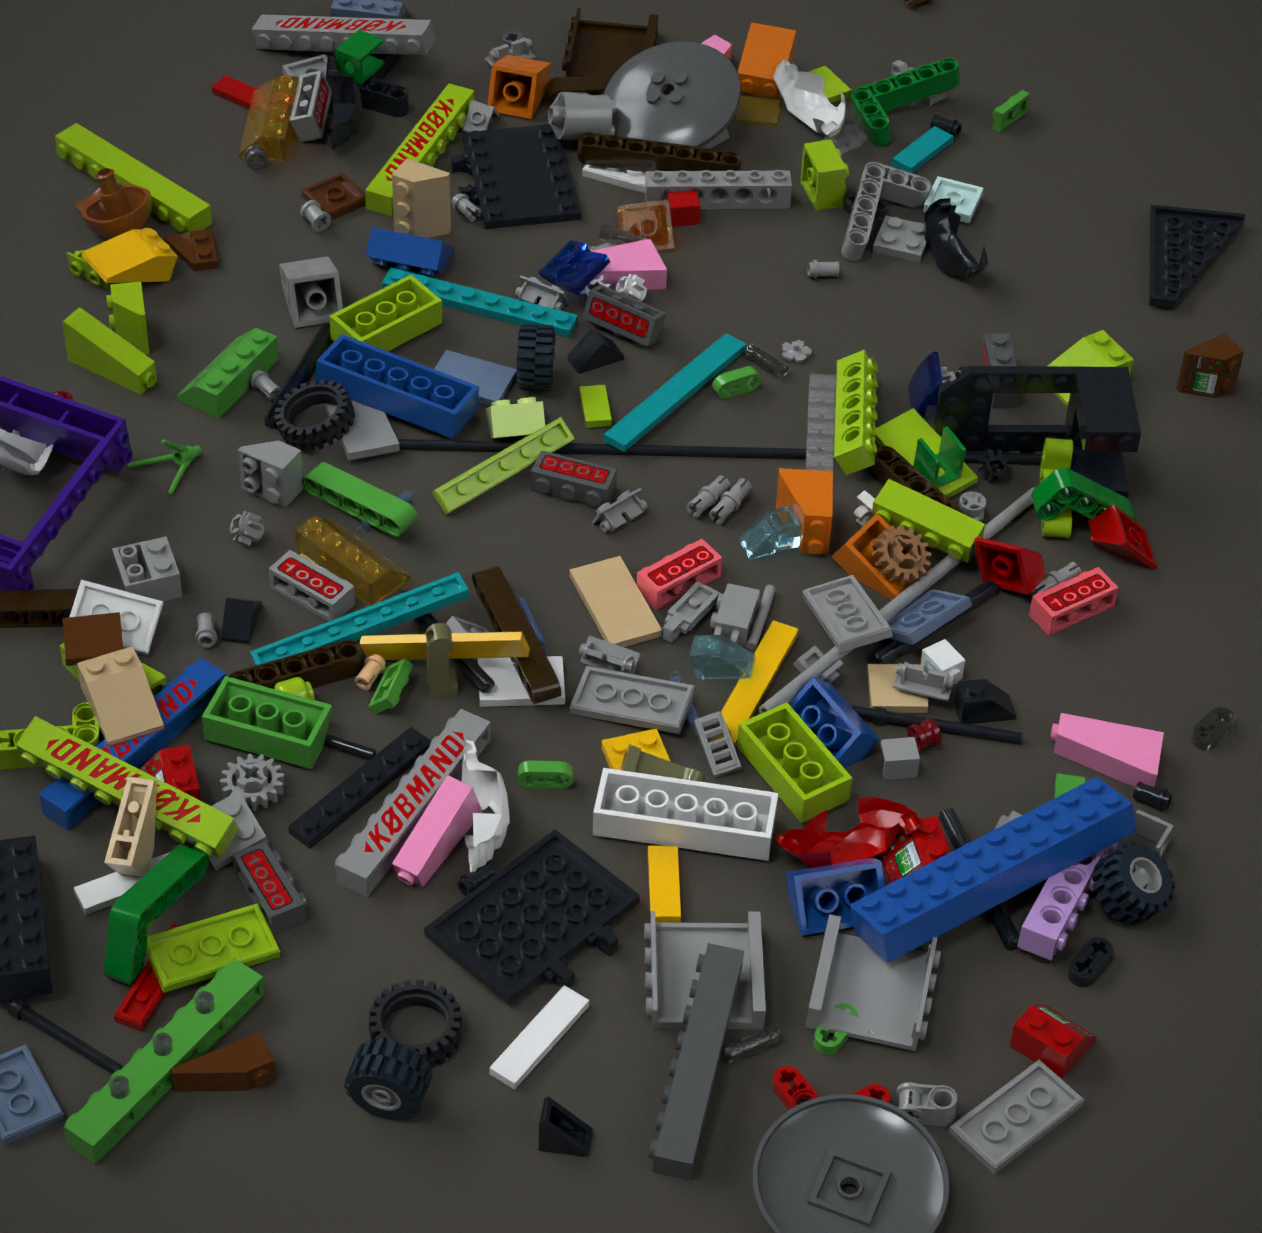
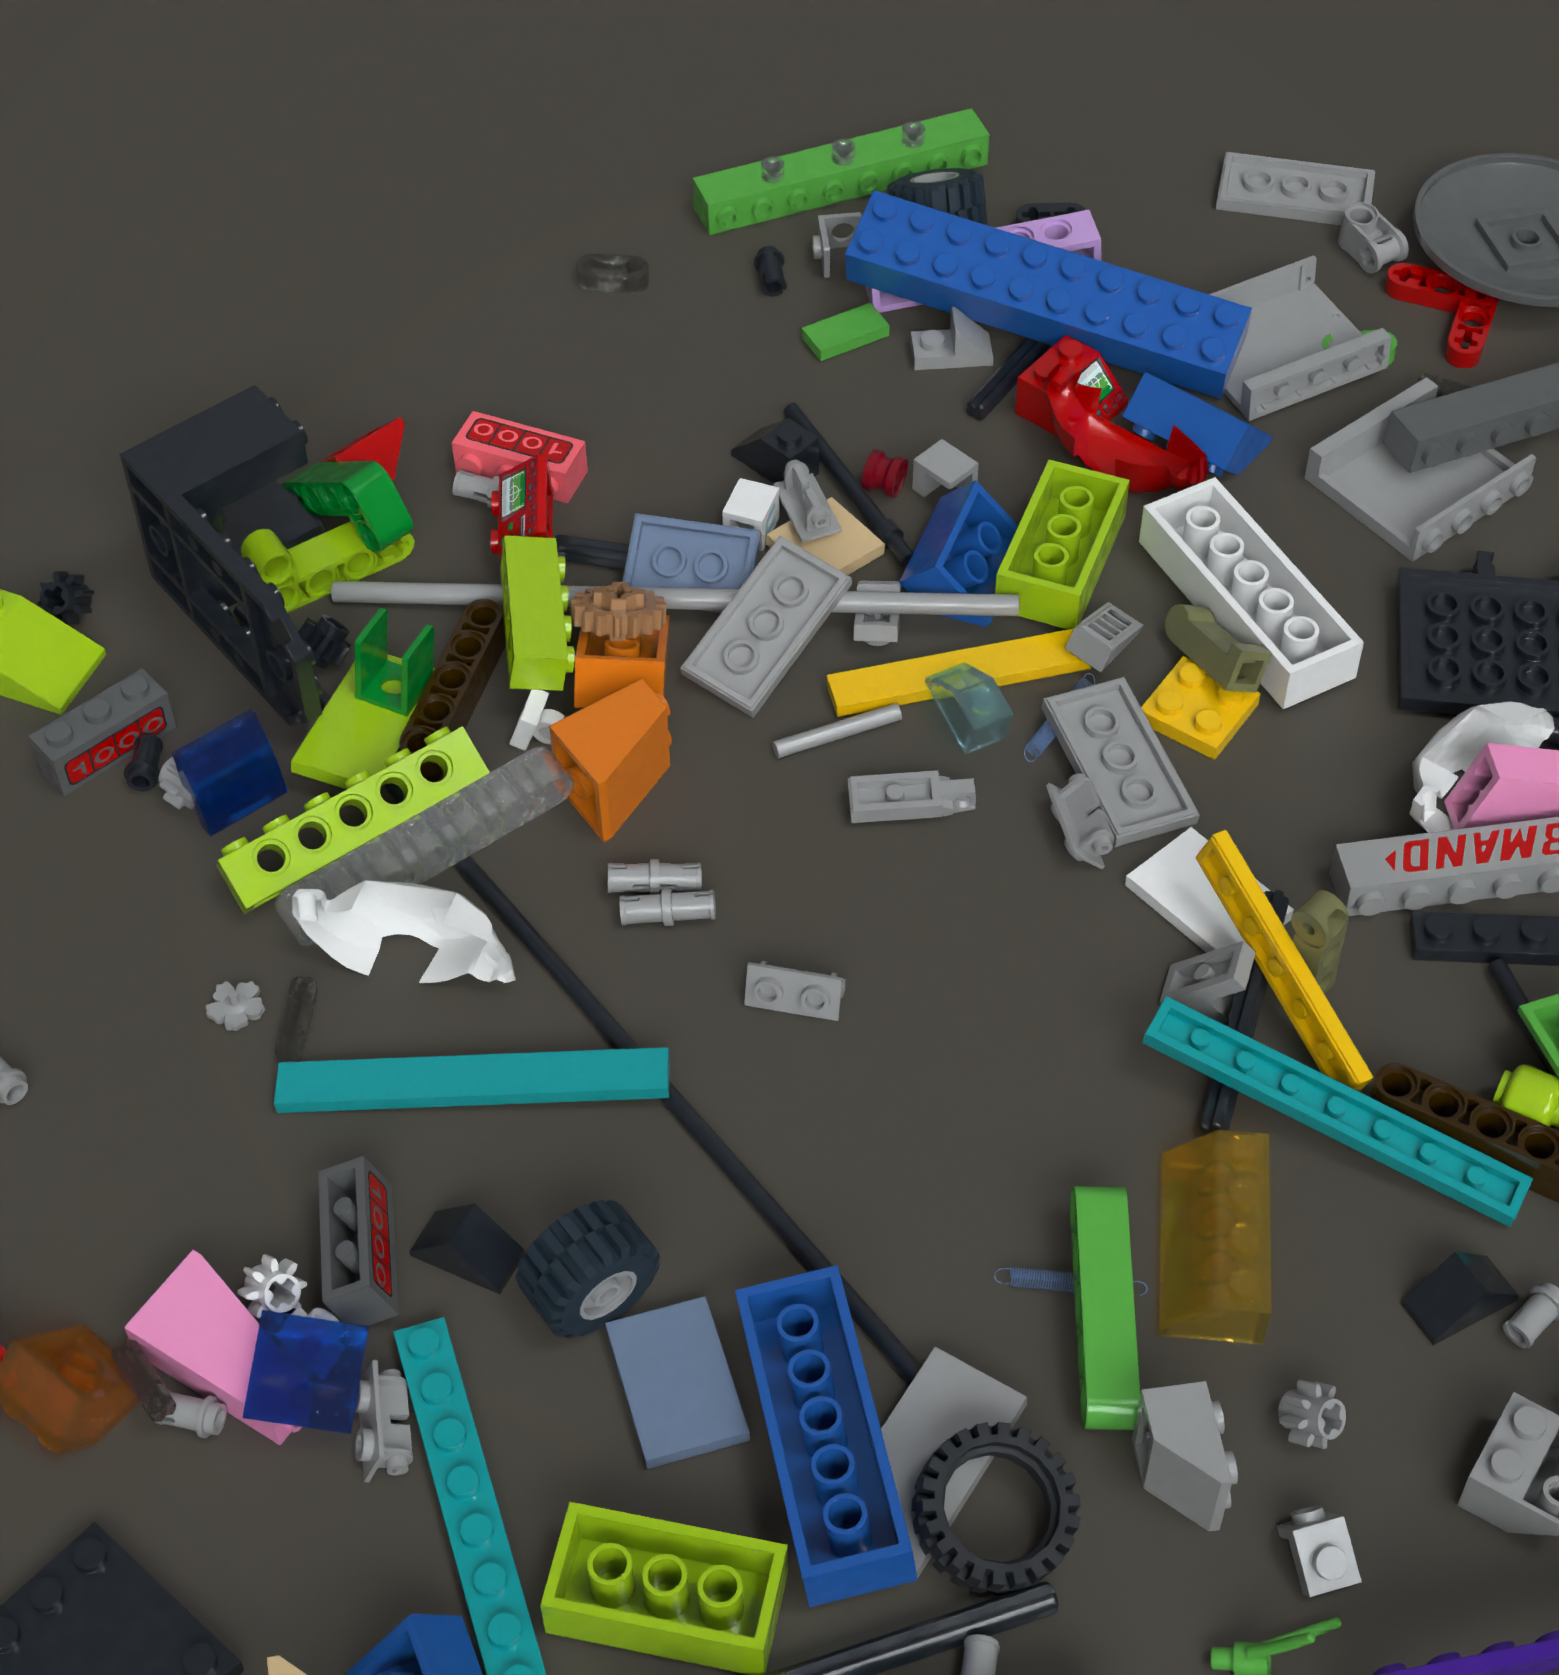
camera: 125 degrees left, 5 degrees up
(199, 496) = (1320, 1550): none -> light grey bracket
(311, 586) = (1321, 1241): light grey brick -> none
(373, 667) = (1378, 1057): light nougat pin -> none
(390, 686) = (1386, 1012): bright green plate -> none
(502, 466) = (848, 1175): lime tile -> none
(508, 616) = (1146, 943): dark brown beam -> none
(515, 419) = (726, 1236): yellowish green slope -> none
(535, 627) = (1109, 957): medium blue piece -> none
(545, 774) = (1332, 764): bright green beam -> none
(573, 479) = (791, 1075): dark grey brick -> none
(595, 406) = (591, 1168): lime tile -> none
(615, 602) = (968, 890): tan tile -> none
(664, 883) = (1357, 569): yellow tile -> none
(678, 572) = (856, 841): coral brick -> none
(735, 613) = (880, 738): light grey hinge -> none
(736, 382) = (386, 1016): bright green beam -> none
(754, 413) = (357, 920): none -> white animal
(772, 533) = (688, 781): clear light blue slope -> none
(973, 505) = (434, 615): light grey wheel -> none
(1050, 1038) = (1181, 197): red slope -> none
(1109, 748) = (736, 321): bright pink slope -> none
(1223, 884) = (837, 171): none -> bright green piece

